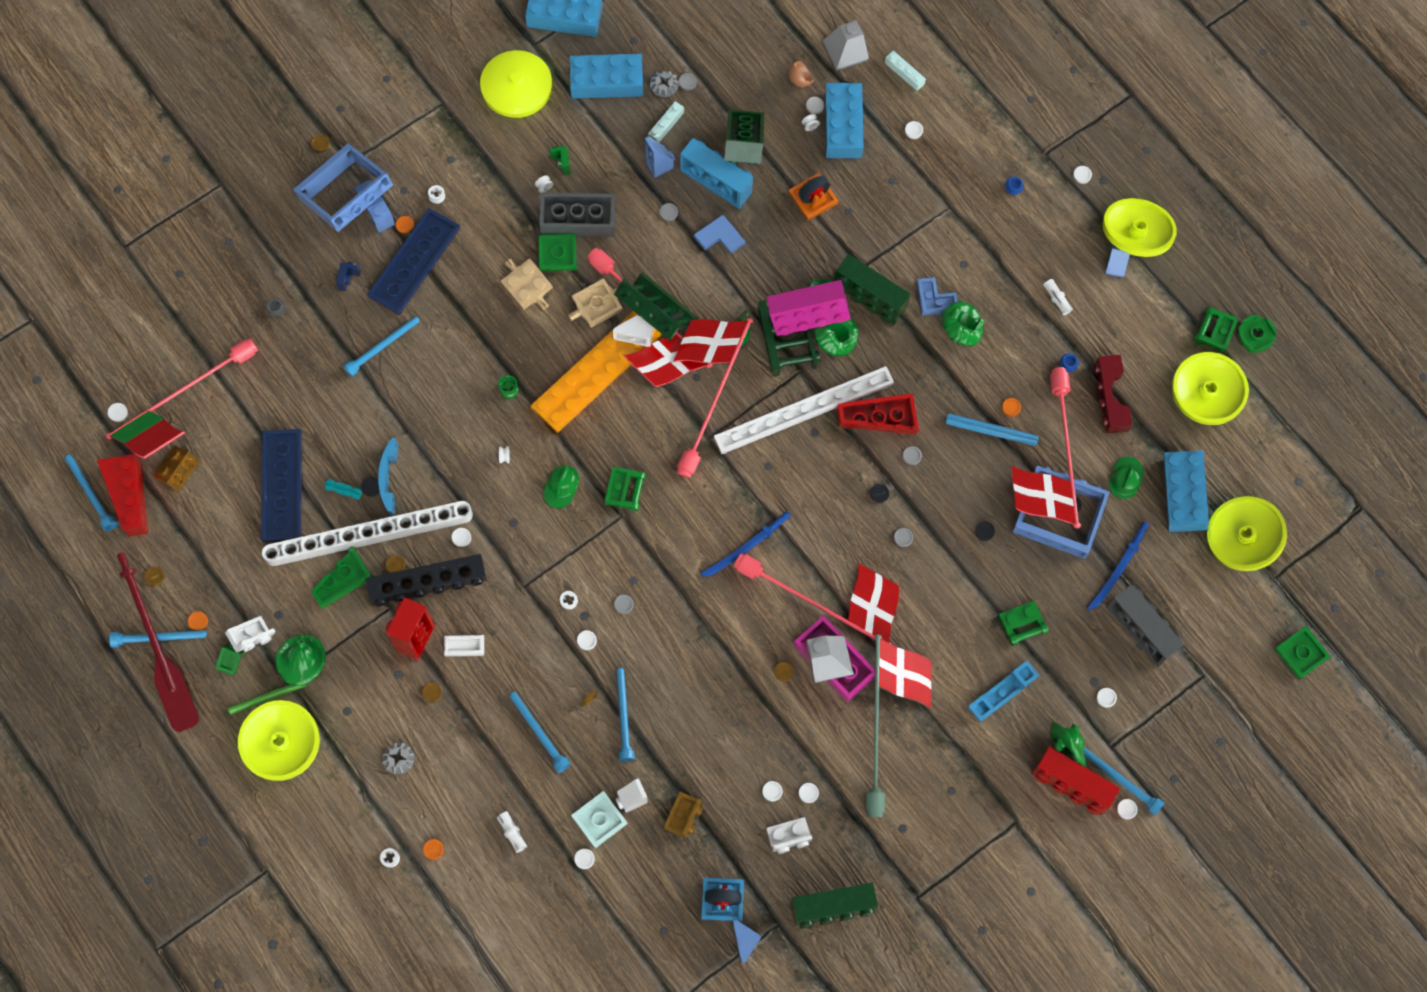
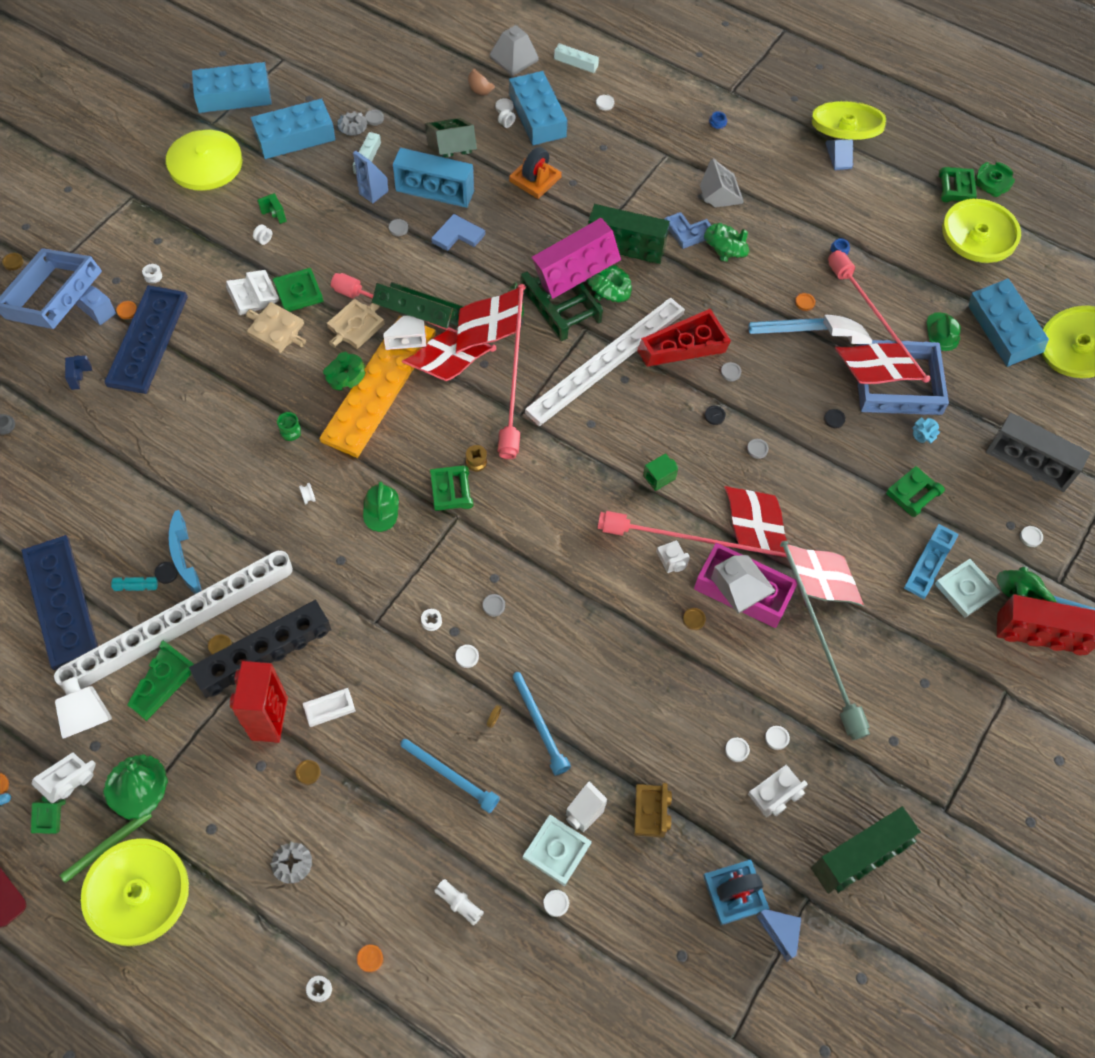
camera: 20 degrees left, 10 degrees down
(275, 583) = (79, 708): none -> white torso
(352, 366) = (108, 457): dark azure piece -> none
(461, 537) = (287, 593): white piece -> none
(517, 241) = (252, 292): none -> white slope
(567, 341) = (336, 374): none -> green plate
(577, 214) = (312, 246): dark grey brick -> none
(653, 471) = (479, 463): none -> pearl gold wheel
(766, 532) = (616, 486): blue sword -> none
(787, 612) = (673, 557): none -> white bracket
(808, 533) = (660, 472): none -> green brick
(983, 261) = (720, 186): none -> light grey slope
(1024, 724) = (967, 588): none -> light aqua plate
(1031, 450) = (845, 327): none -> white slope
(1058, 297) = (802, 197): white pin -> none
(1058, 571) = (925, 430): none -> medium azure gear
(1082, 174) = (774, 98): white piece -> none
(1116, 416) = (906, 278): dark red arch -> none
(1132, 548) = (982, 390): blue sword -> none

